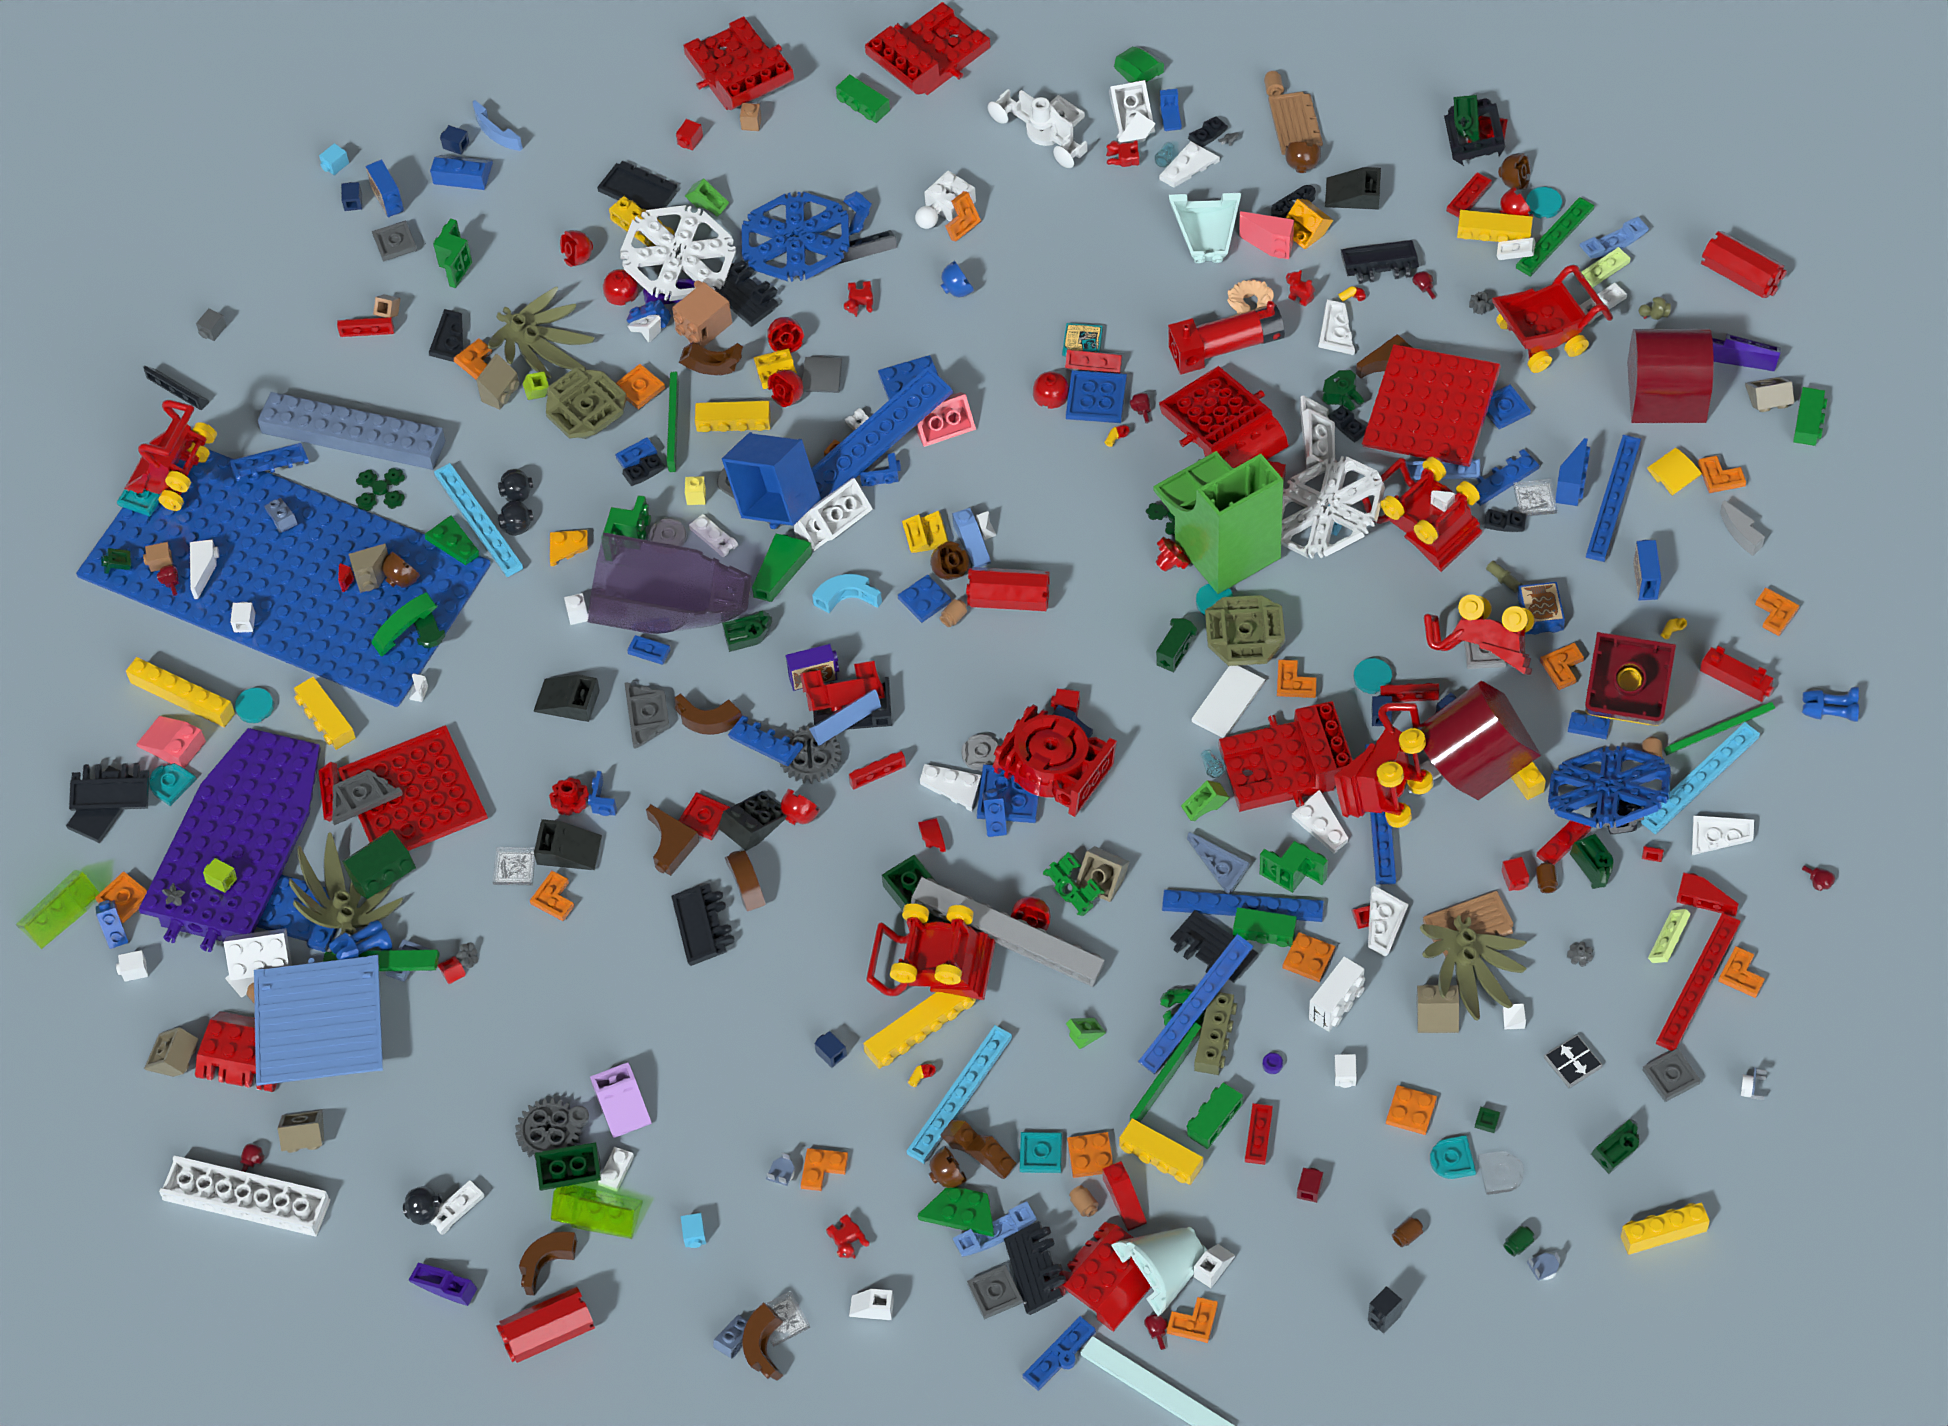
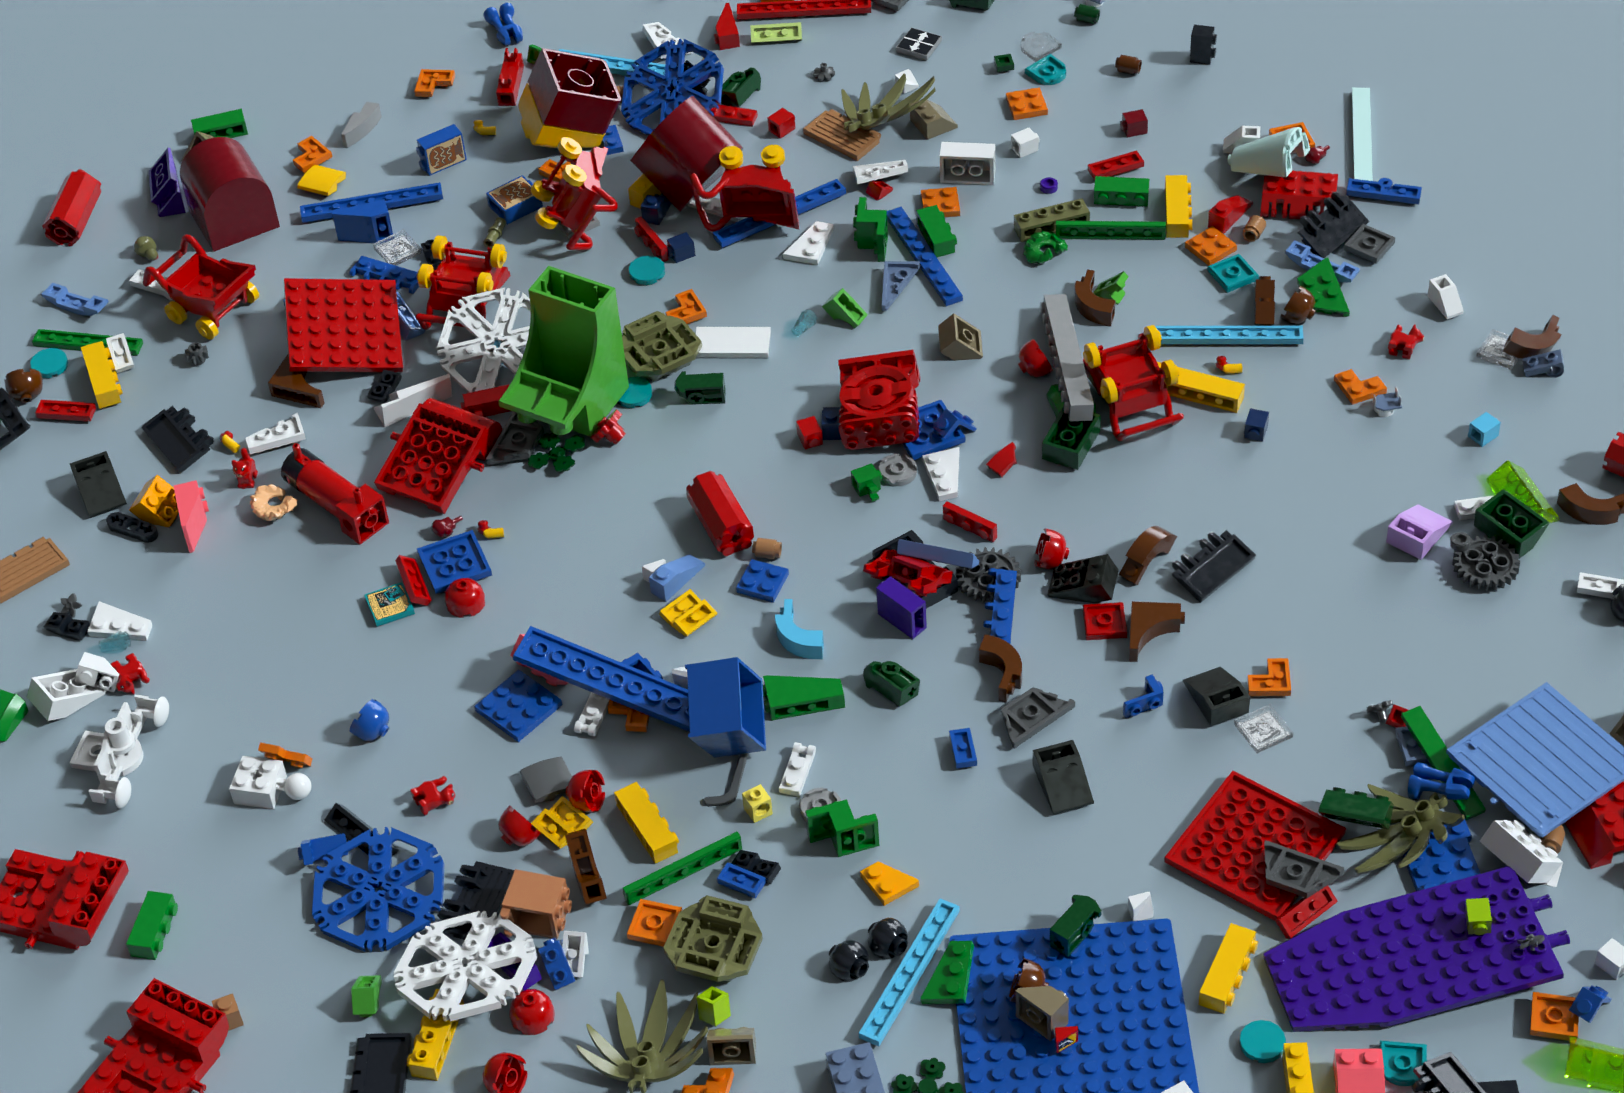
camera: 120 degrees left, 10 degrees down
(401, 620) = (1090, 935): green slope -> none
(569, 796) = (1163, 723): red plant -> none
(576, 608) = (959, 824): white brick -> none
(663, 587) = (912, 740): clear purple windscreen -> none
(689, 134) = (280, 1060): red brick -> none
(949, 561) = (717, 571): reddish brown cylinder -> none
(978, 718) = (866, 481): none -> green brick
(1078, 896) = (984, 361): green piece -> none
(1079, 1001) = (1091, 306): none -> reddish brown arch
(1170, 109) = (54, 663): blue bracket -> none
(1195, 1004) = (1043, 226): blue plate -> none
(1206, 225) = (196, 562): light aqua cone -> none
(1209, 941) = (974, 255): black hinge -> none
(1286, 758) = (765, 277): red piece -> none
(1302, 157) = (74, 535): reddish brown cylinder -> none
(1342, 390) = (351, 396): dark green hinge -> none
(1424, 282) = (189, 400): dark red piece -> none
(1442, 499) = (456, 262): white slope -> none
(1514, 204) = (69, 369): red cylinder -> none
(1546, 877) = (771, 106): reddish brown brick -> none
(1606, 266) = (116, 296): yellowish green plate -> none

